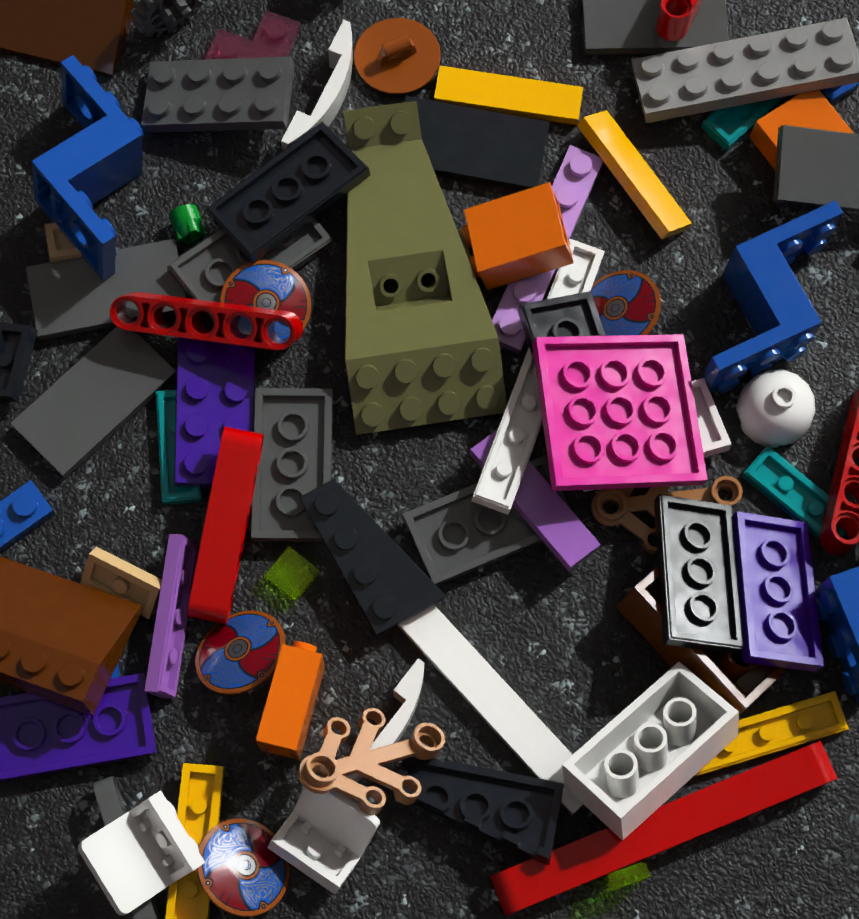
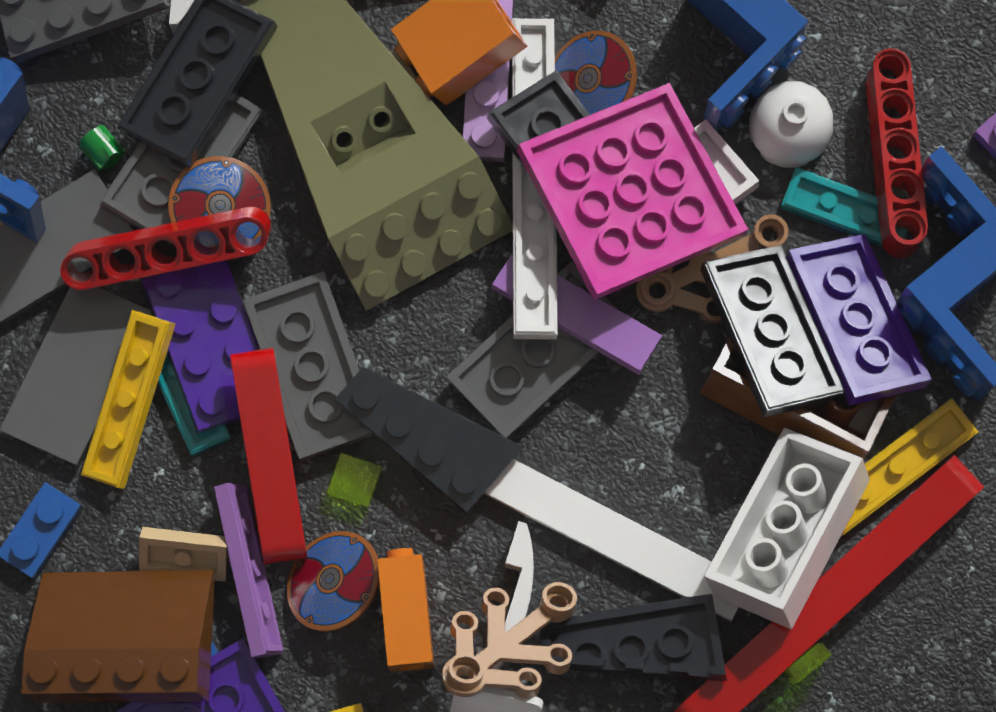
camera: 15 degrees left, 5 degrees up
(126, 436) = (128, 399): none -> yellow tile

